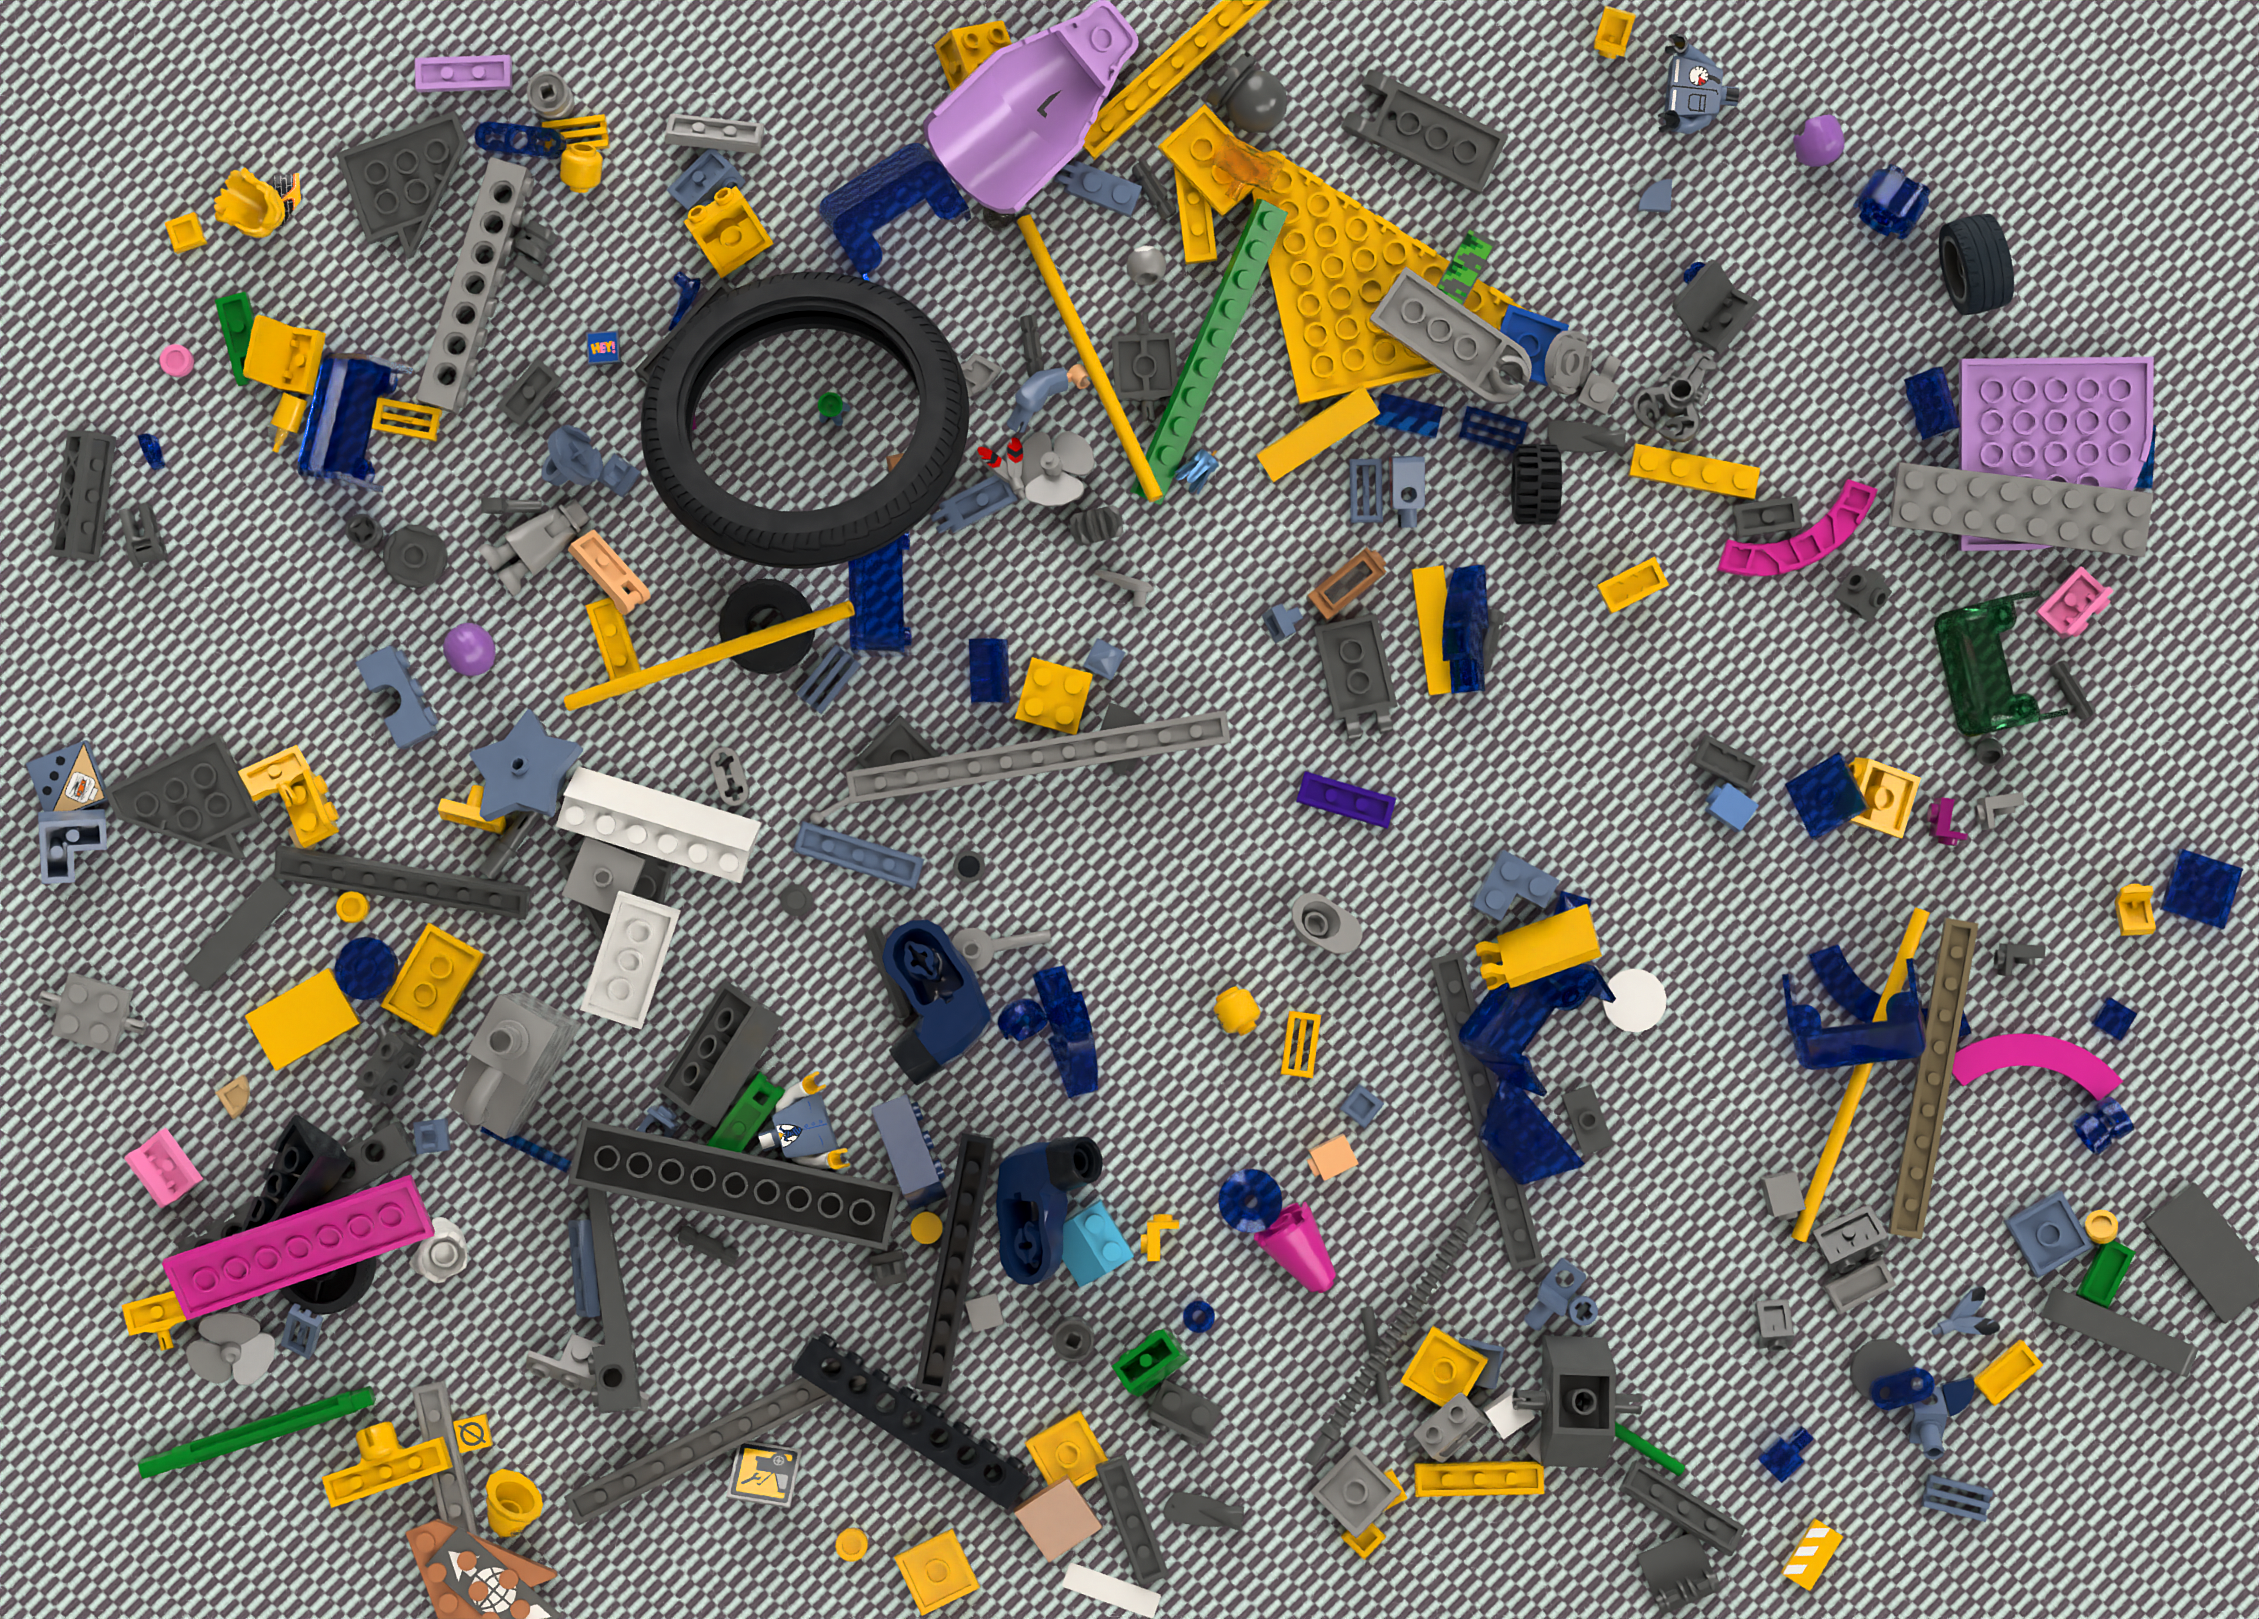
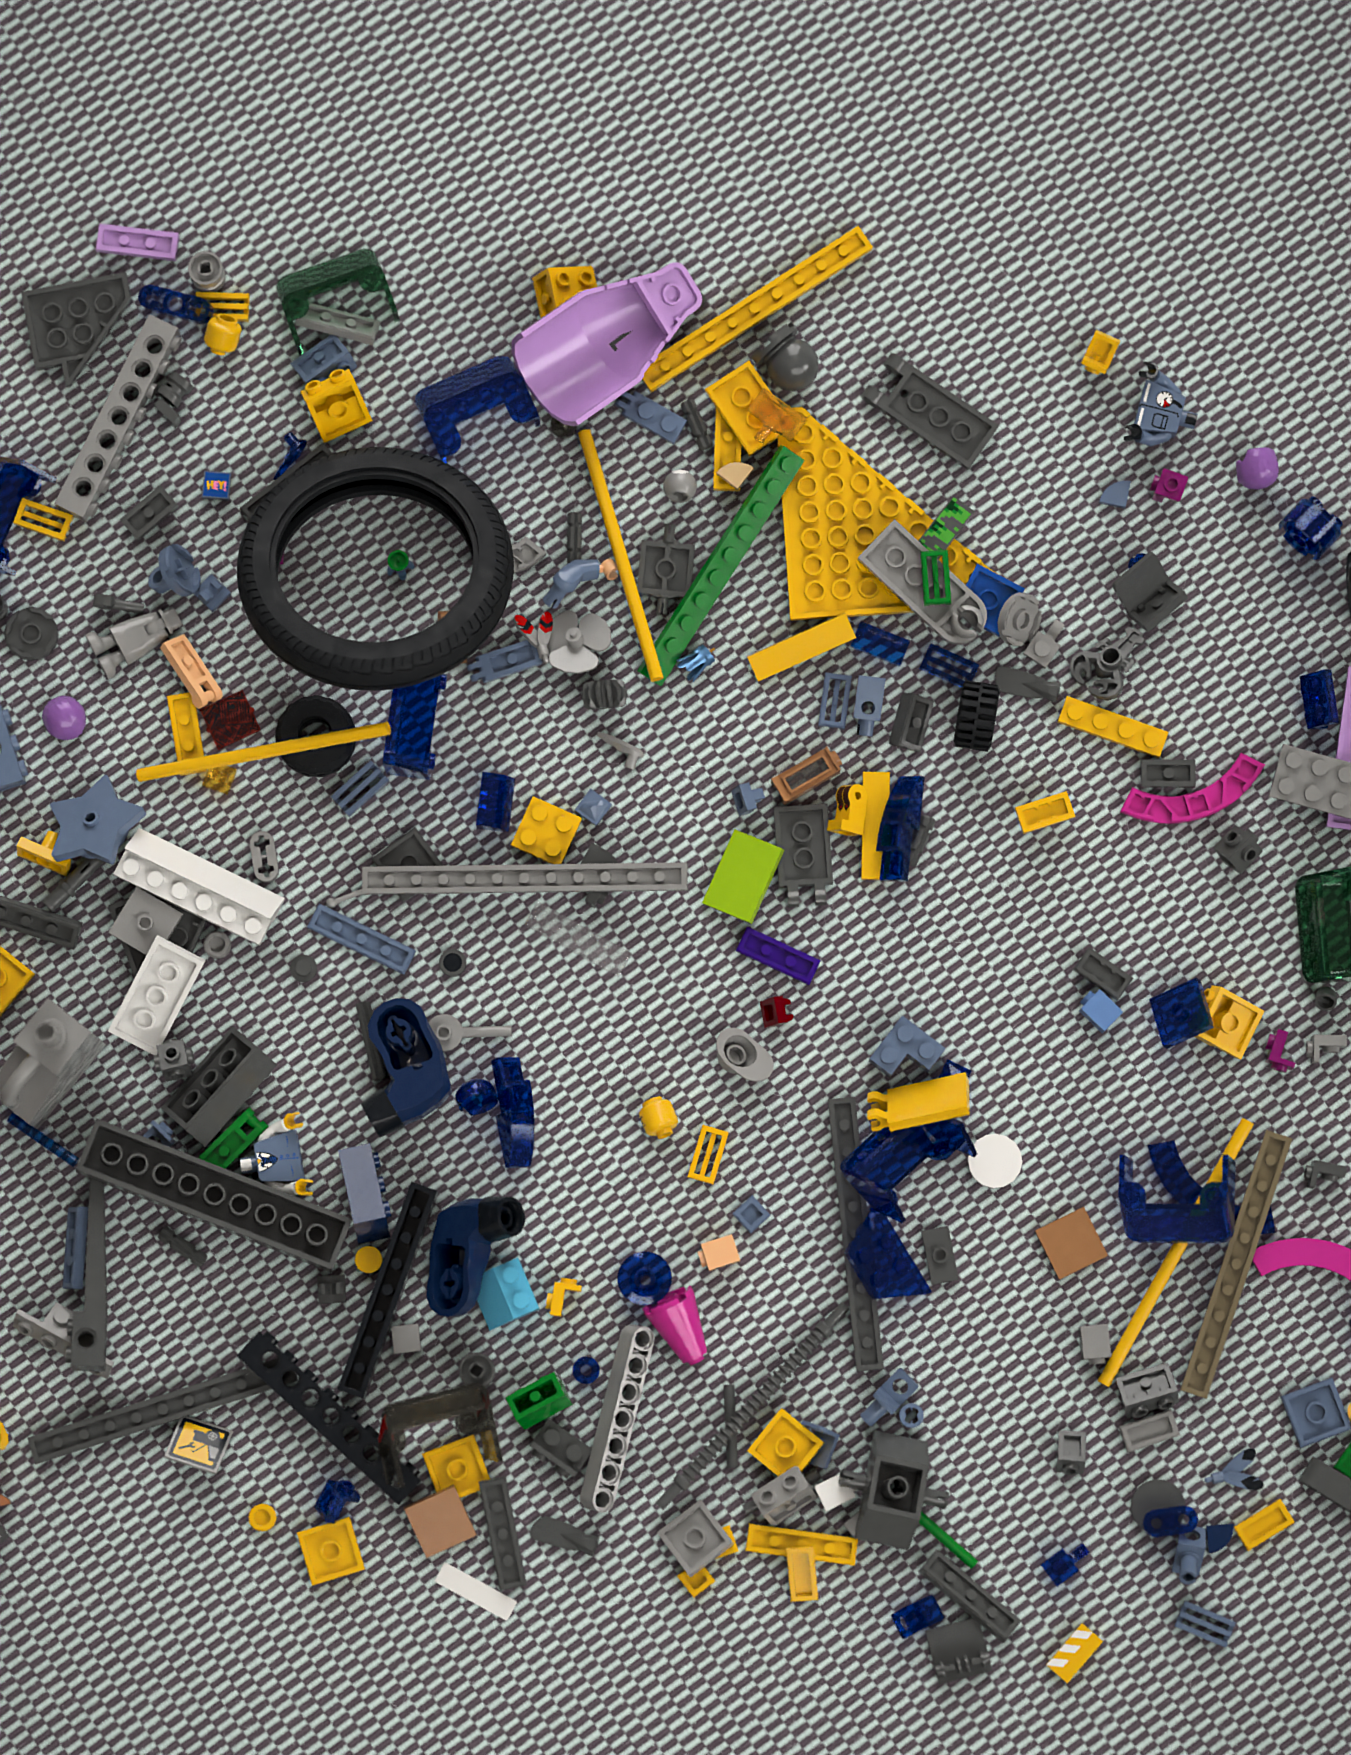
camera: 10 degrees right, 5 degrees down
(663, 693) = (220, 779): none -> clear yellow tile
(664, 621) = (230, 720): none -> clear red piece
(670, 1038) = (174, 1059): none -> dark grey brick
(691, 888) = (217, 945): none -> light grey tile
(725, 63) = (356, 266): none -> clear green windscreen
(931, 1512) = (333, 1499): none -> clear blue bracket
(1066, 1383) = (466, 1403): none -> clear smoke windscreen
(1110, 816) = (578, 939): none -> clear tile
(1209, 241) = (735, 473): none -> tan tile
(1251, 1381) = (627, 1409): none -> light grey beam
(1291, 714) = (743, 876): none -> lime tile
(1352, 866) = (774, 1011): none -> dark red tile
(1404, 617) = (850, 810): none -> yellow leg
(1458, 502) = (911, 722): none -> dark grey slope
(1471, 355) = (937, 600): none -> green tile
(1485, 1514) = (802, 1574): none -> yellow tile
(1626, 1541) = (917, 1616): none -> clear blue bracket
(1718, 177) = (1168, 485): none -> magenta bracket
(1737, 1082) = (1071, 1243): none -> medium nougat tile

